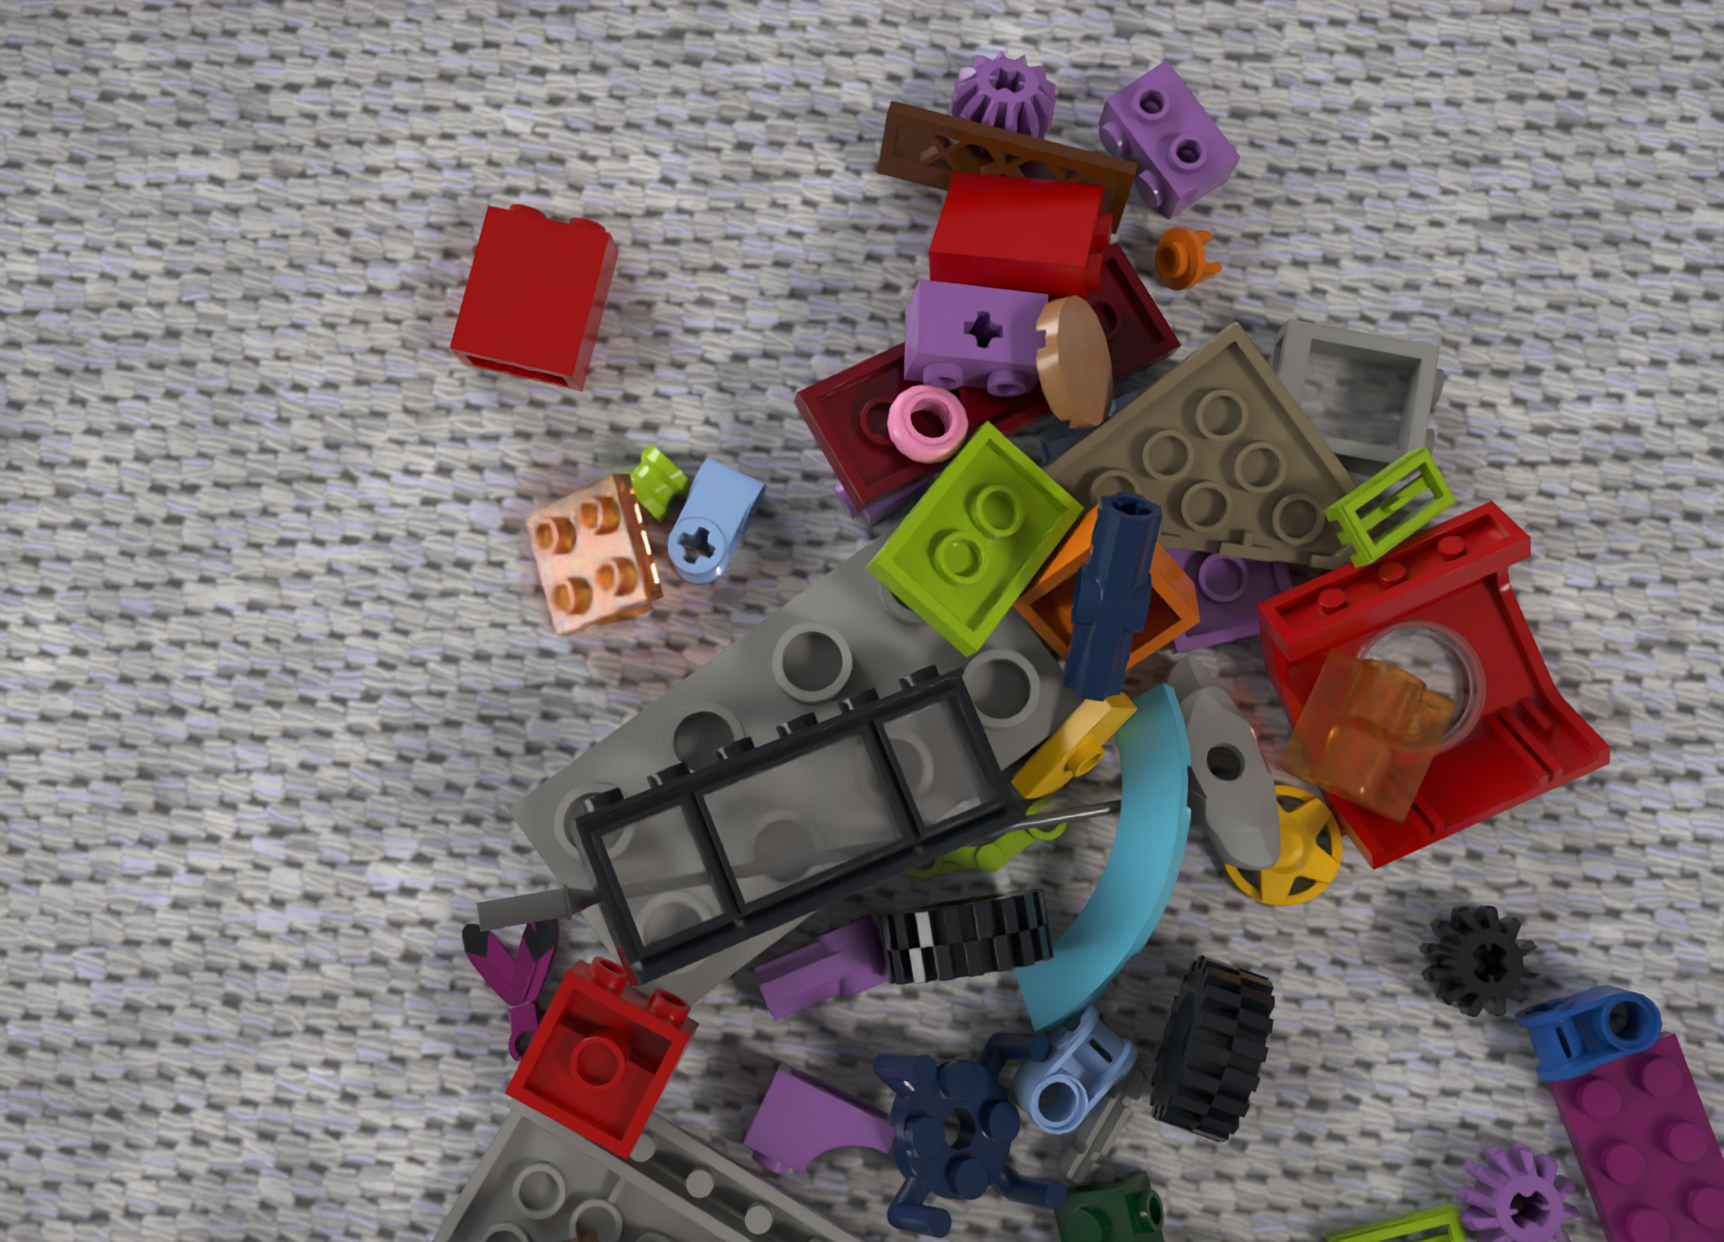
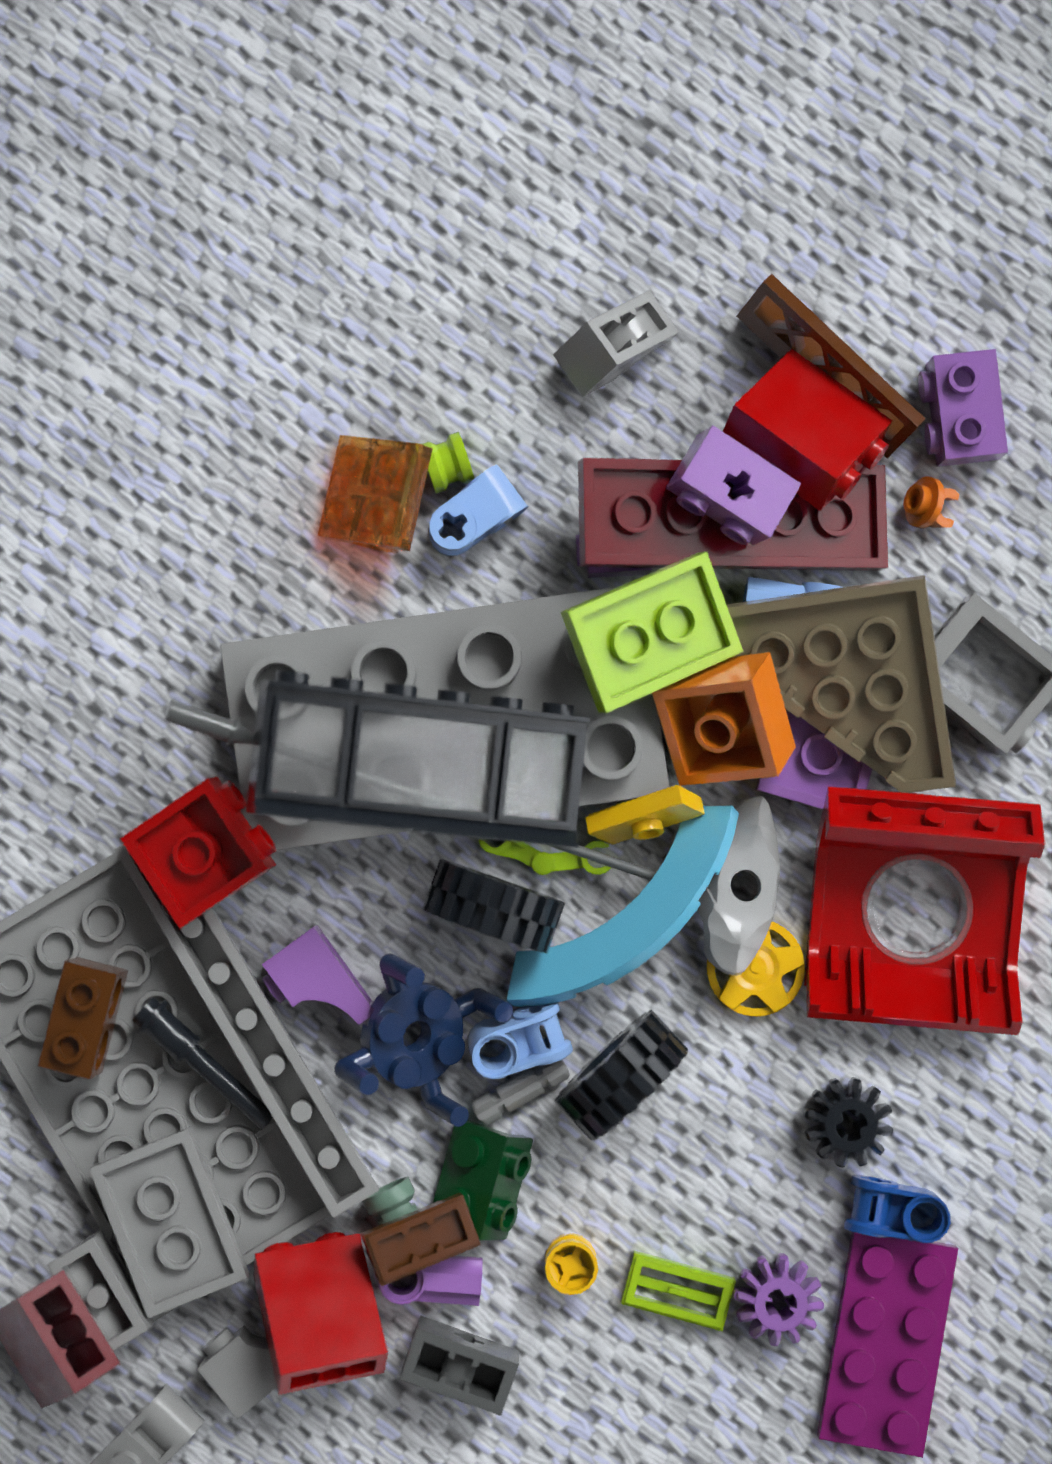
camera: 25 degrees right, 5 degrees up
(513, 980) = (160, 767): magenta piece -> none
(535, 296) = (434, 274): red brick -> none
(763, 266) = (615, 342): none -> light grey arch
(838, 963) = (395, 877): medium lavender piece -> none
(942, 404) = (648, 545): bright pink piece -> none
(1005, 95) = (860, 312): medium lavender gear -> none
(1074, 363) = (794, 545): medium nougat tile -> none
(1111, 595) = (721, 725): dark blue piece -> none
(1356, 527) = (926, 771): lime tile -> none
(1368, 734) = (856, 921): clear orange plate -> none

